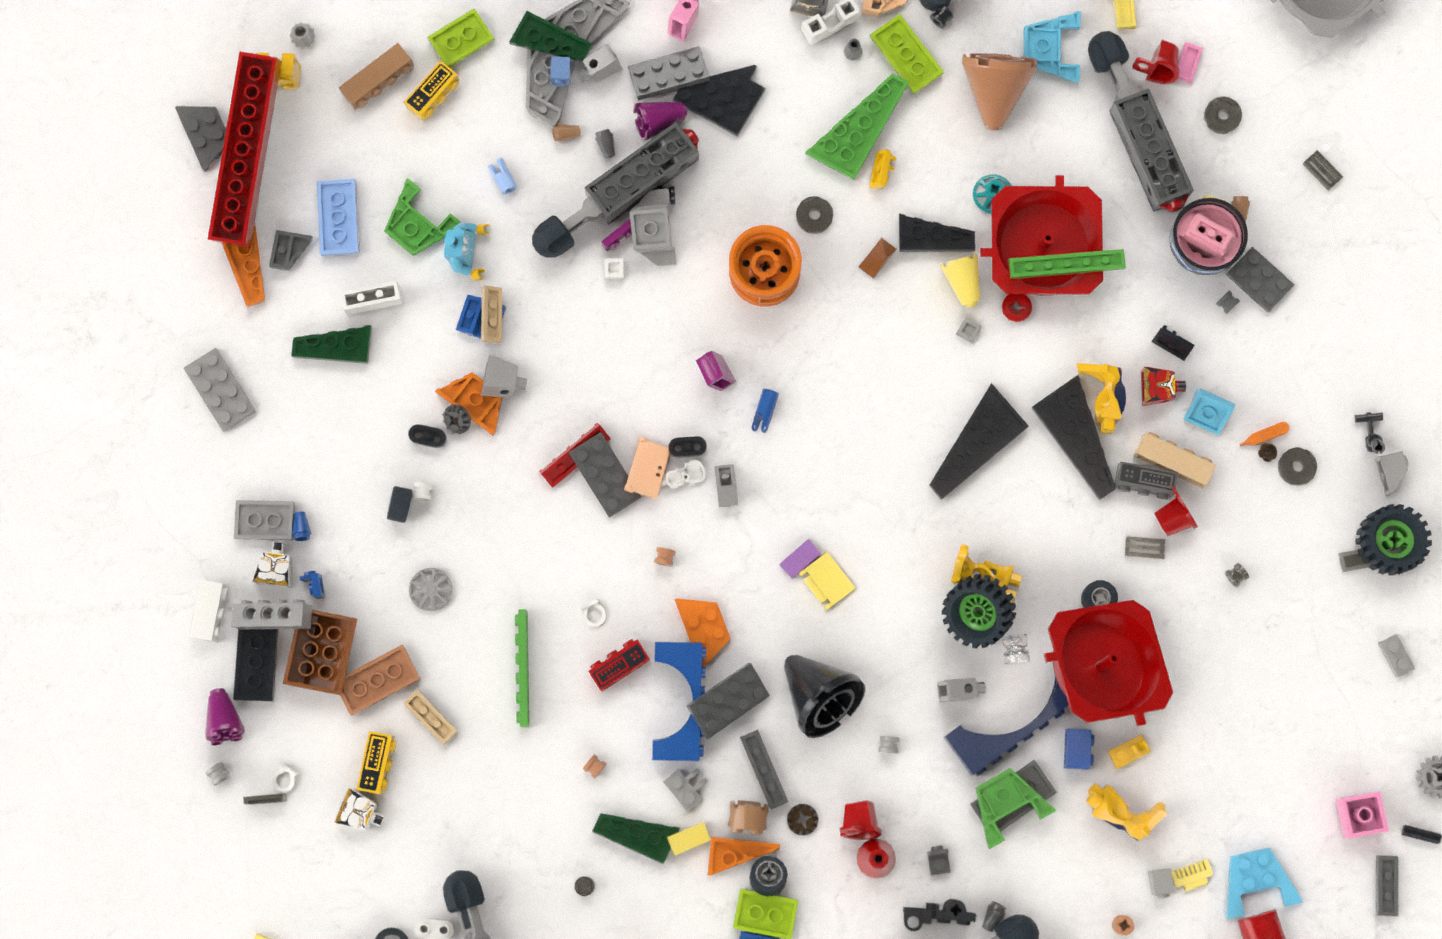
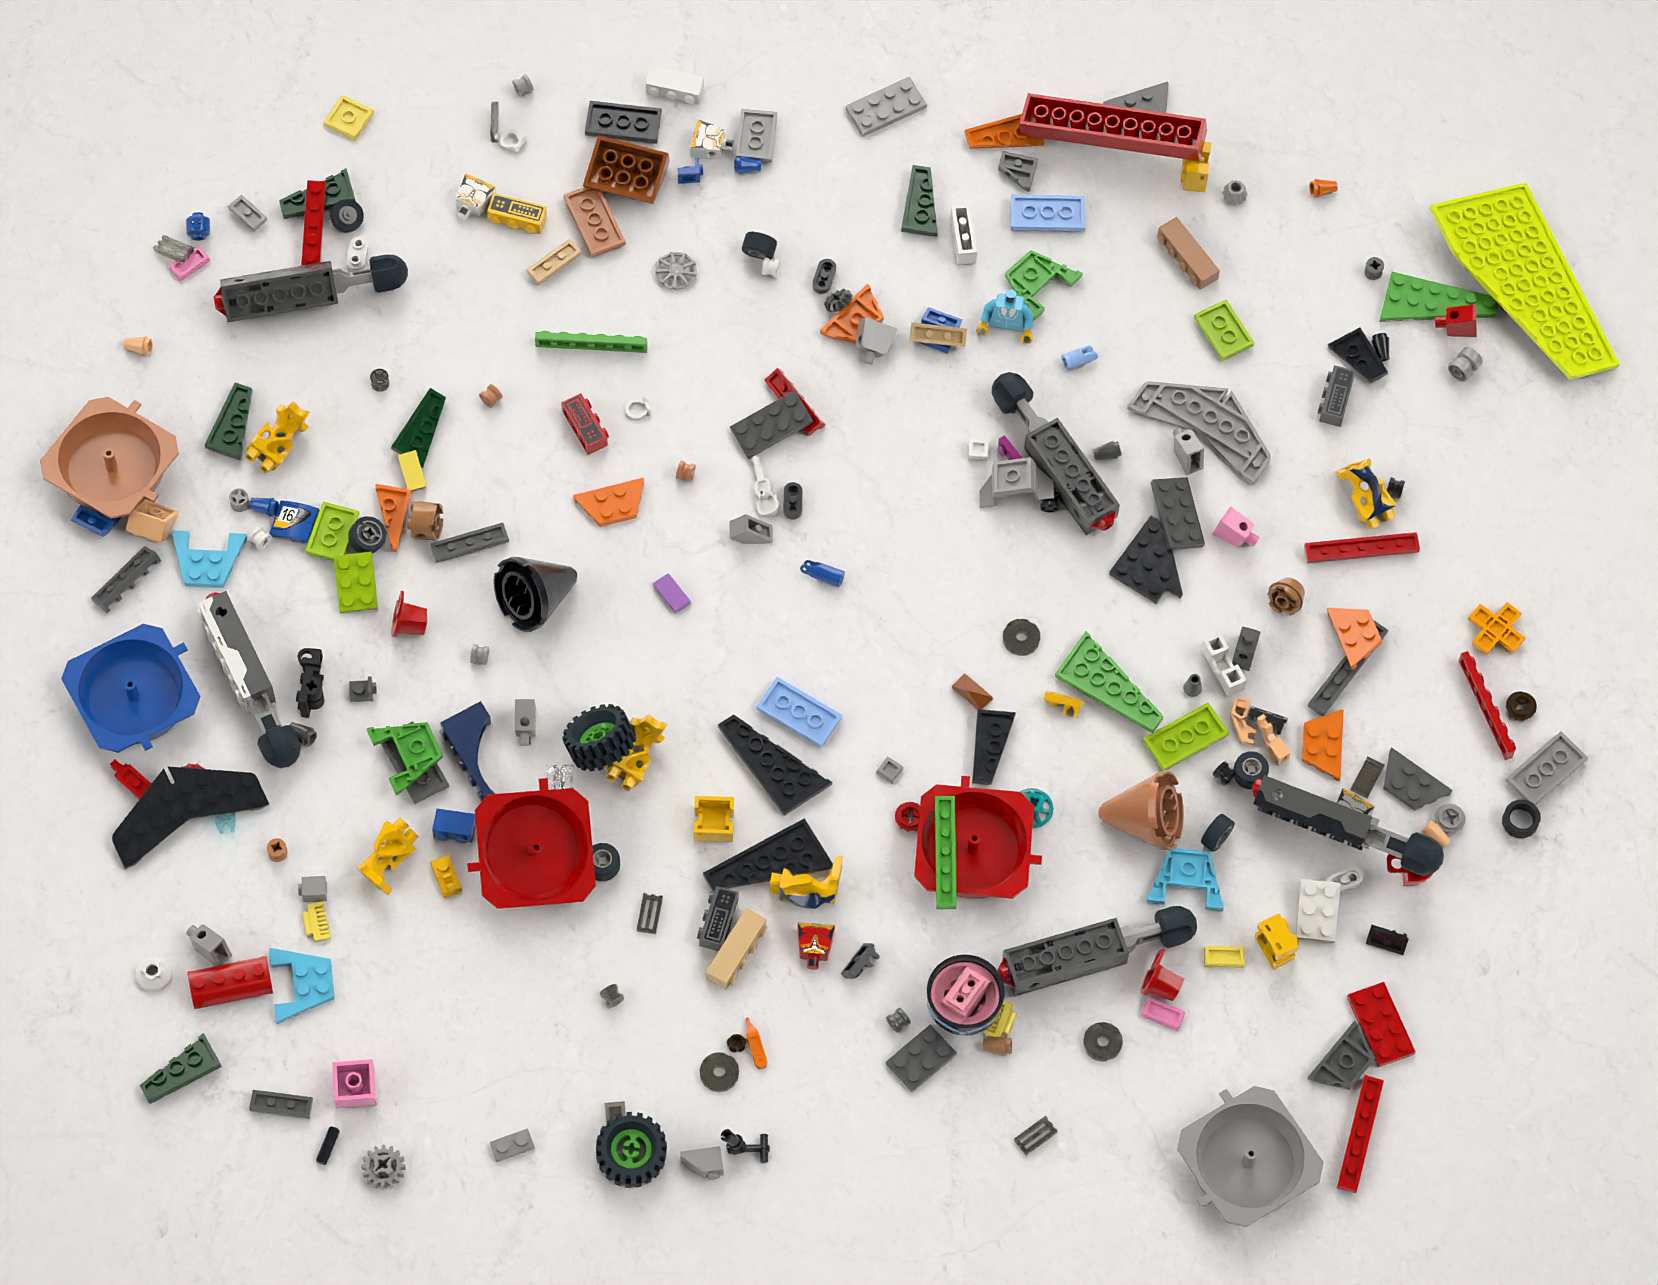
camera: 90 degrees right, 15 degrees down
(222, 719) = (572, 90): magenta cone -> none
(299, 619) = (661, 129): light grey brick -> none
(432, 91) = (1170, 300): yellow brick -> none
(549, 38) = (1217, 403): dark green wing -> none
(560, 71) = (1181, 411): medium blue brick -> none
(565, 132) = (1121, 415): medium nougat cone -> none
(644, 473) = (775, 460): light nougat door -> none
(657, 116) = (1131, 496): magenta cone -> none
(683, 790) = (459, 472): light grey hinge -> none
(687, 659) = (579, 480): blue arch -> none
(715, 371) = (865, 526): magenta torso -> none
(728, 700) = (538, 512): dark grey plate -> none
(769, 239) = (951, 598): orange wheel -> none
(806, 810) = (411, 578): dark brown gear -> none
(821, 882) = (355, 582): none -> lime plate
(827, 580) = (647, 616): light yellow piece -> none
(866, 858) = (371, 632): cone -> none
(918, 421) = (799, 712): none -> light blue plate
(964, 279) = (941, 765): light yellow cone -> none
(1006, 18) = (1217, 832): none -> black wheel
(1045, 493) = (713, 819): none -> yellow piece
(1175, 516) = (678, 942): red container -> none
(1209, 411) = (786, 987): medium azure bracket -> none

